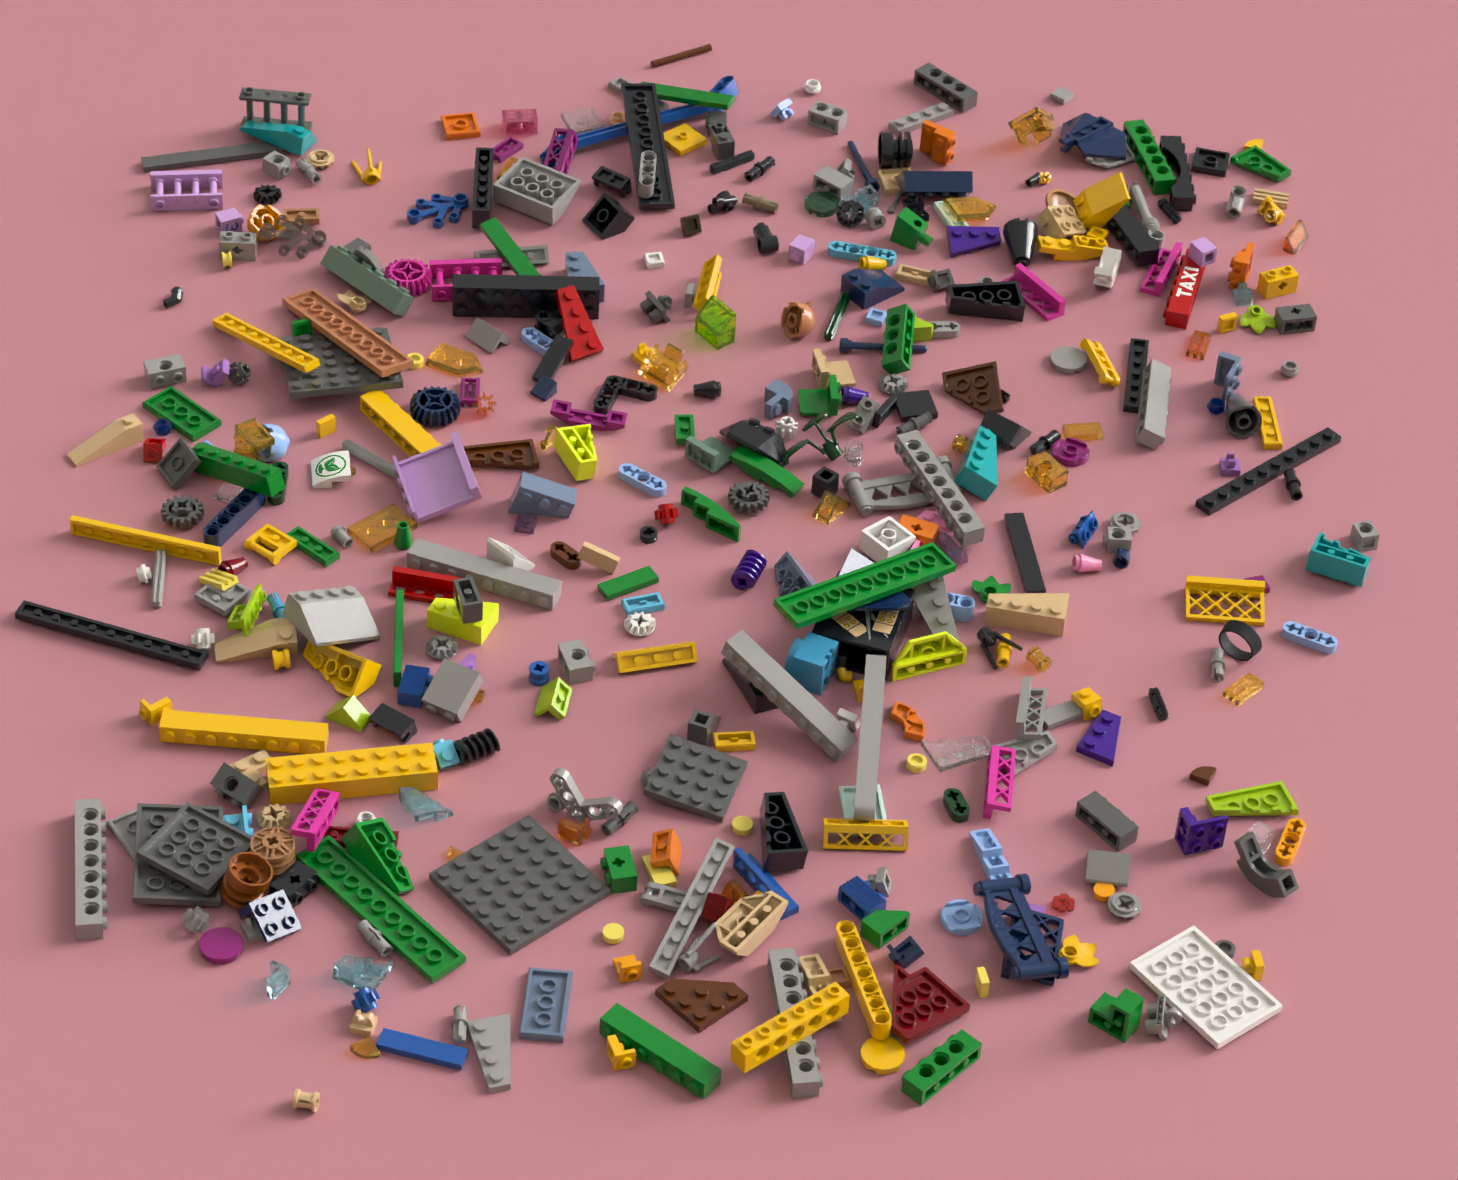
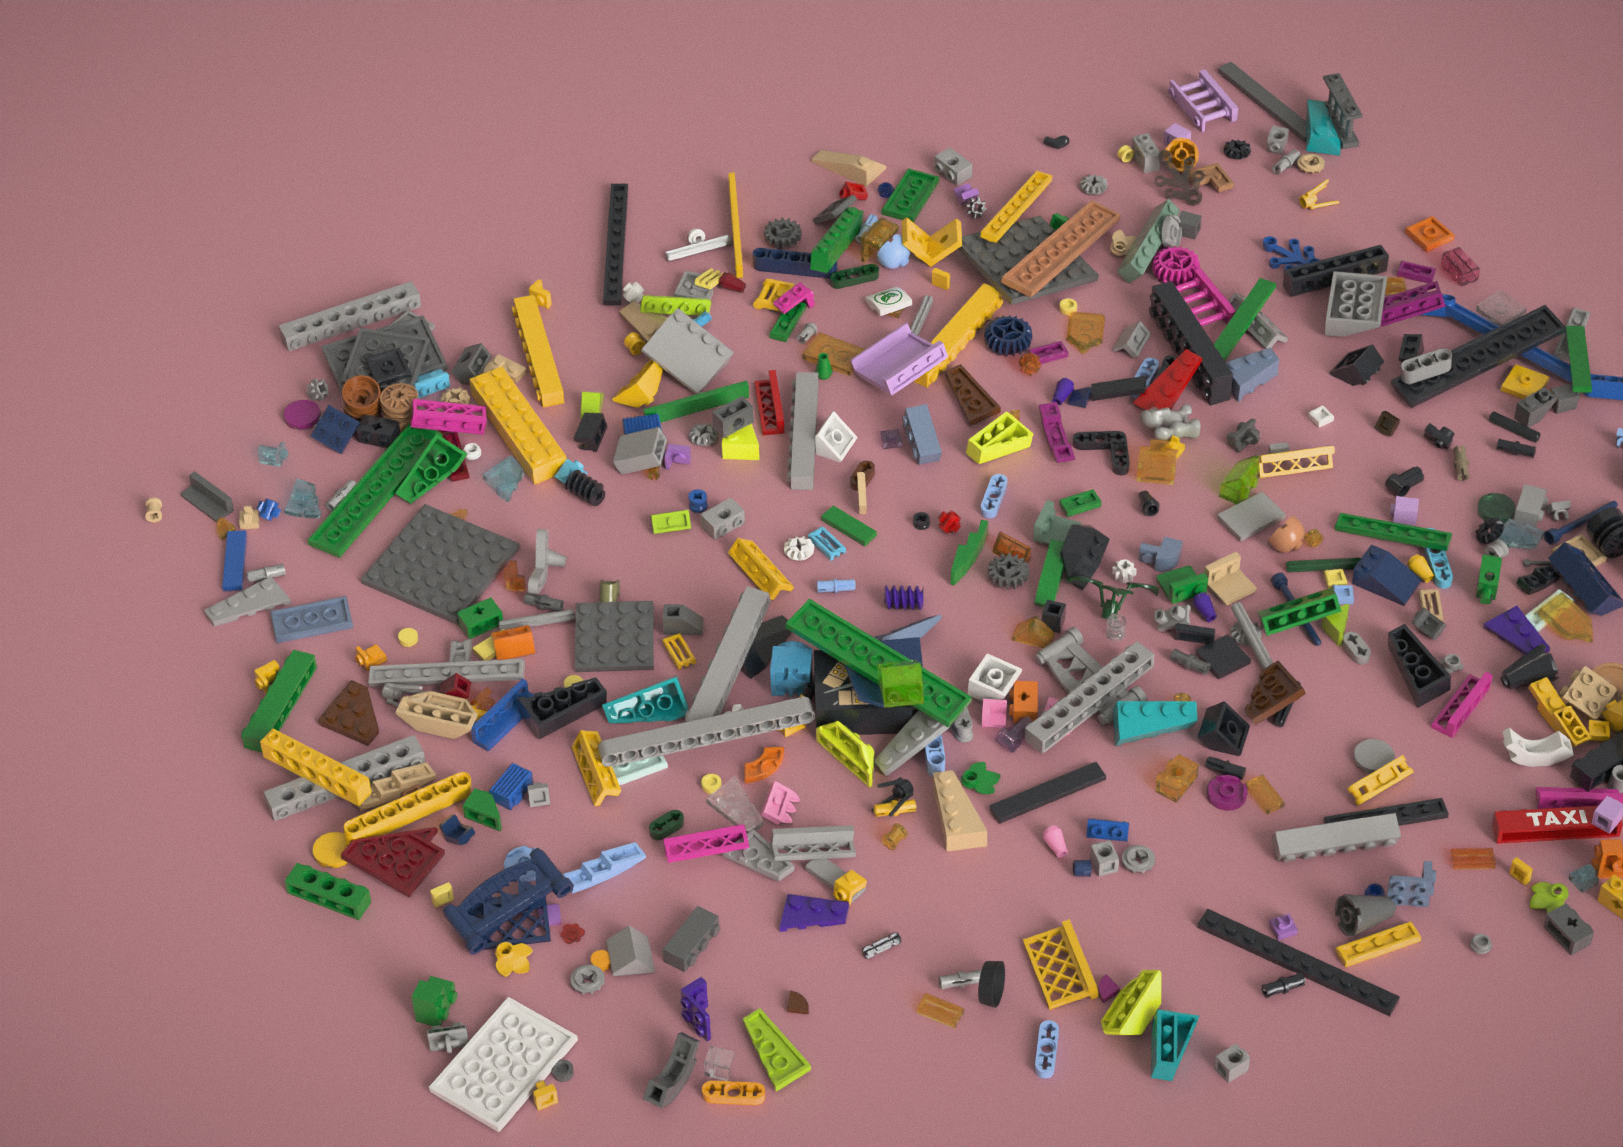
camera: 75 degrees right, 5 degrees up
(213, 844) = (388, 367): none -> black tile
(258, 295) = (1099, 186): none -> light grey gear
(272, 413) = (934, 247): none -> yellow bracket
(294, 528) = (793, 297): none -> dark pink bracket
(311, 1050) = (207, 498): none -> dark grey panel
(530, 395) = (1063, 390): none -> dark purple cone
(616, 340) = (1171, 422): none -> light grey animal
(635, 764) = (609, 590): none -> olive piece
(641, 829) = (538, 620): none -> light grey axle
(705, 612) = (835, 585): none -> light blue axle
(718, 488) = (1007, 544): none -> clear orange slope
(756, 338) = (1251, 516): none -> light grey tile
(799, 768) = (656, 702): none -> teal wedge
(822, 264) = (1393, 531): none -> green tile
(855, 315) = (1334, 577): none -> light yellow tile
(907, 571) = (901, 683): none -> clear neon green slope
(909, 377) = (1251, 634): none -> light grey axle
(969, 723) = (779, 804): none -> bright pink plate
(1288, 571) = (1134, 1005): none -> neon yellow wedge

